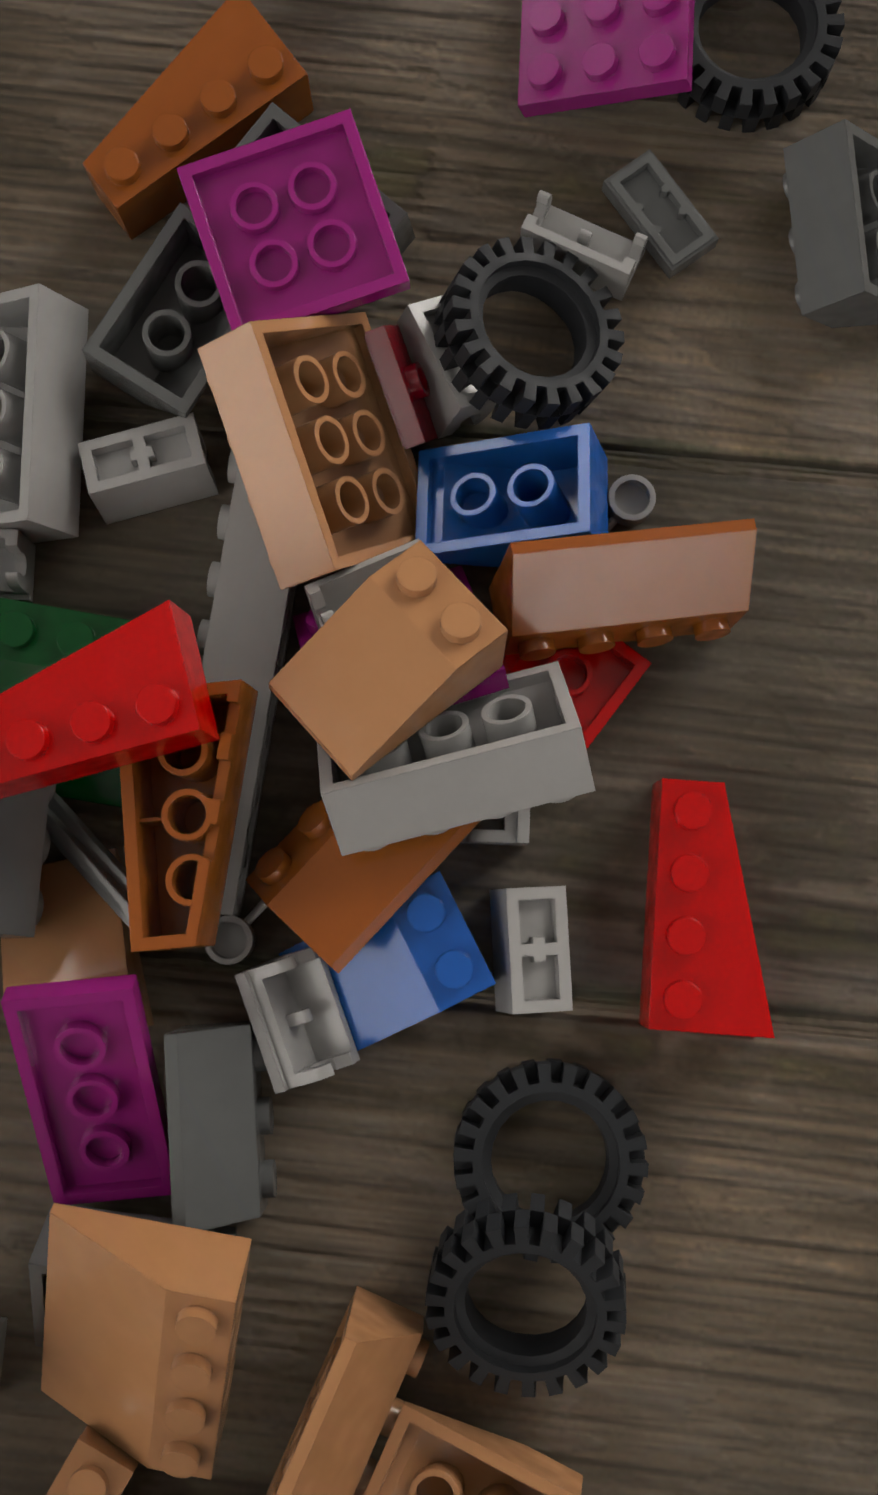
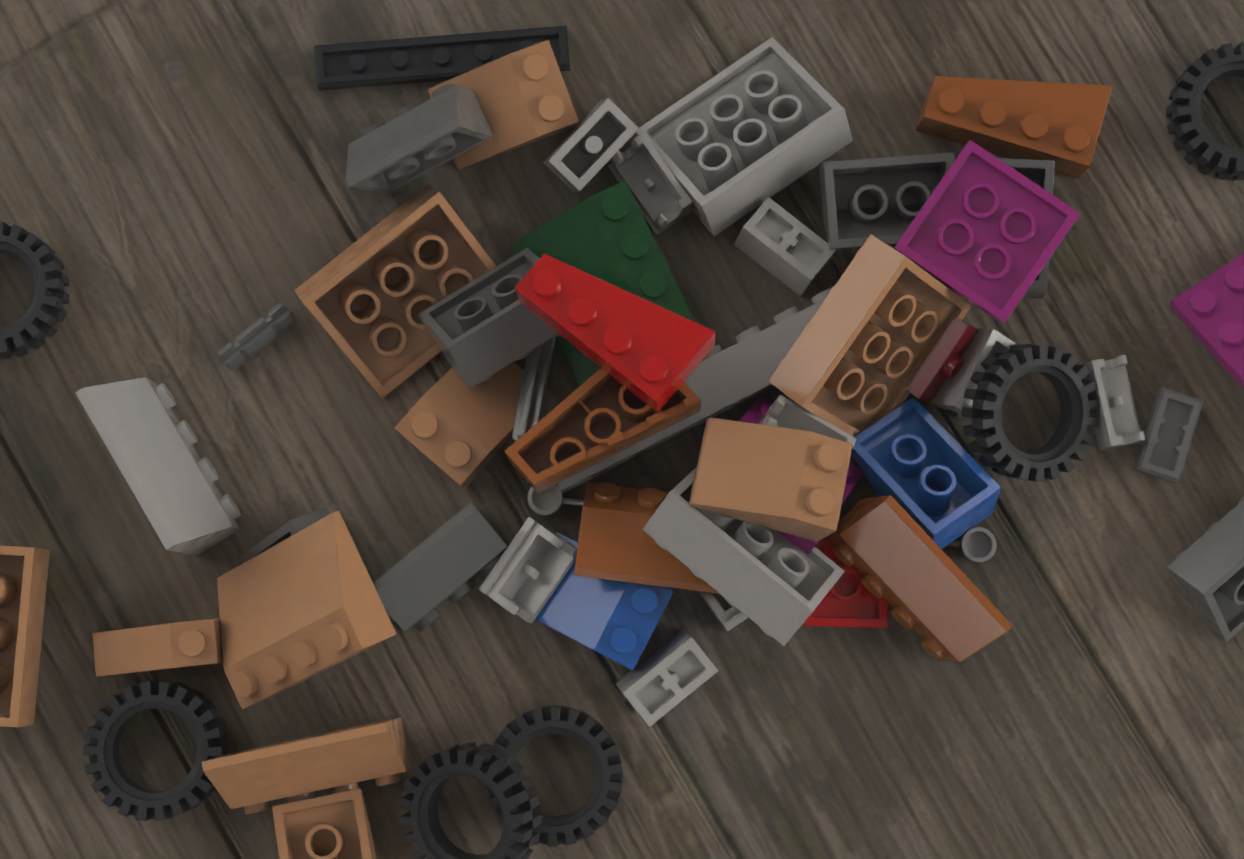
camera: 50 degrees right, 0 degrees up
(91, 1087) = (409, 484): magenta plate -> none
(698, 925) = (752, 765): red wedge -> none

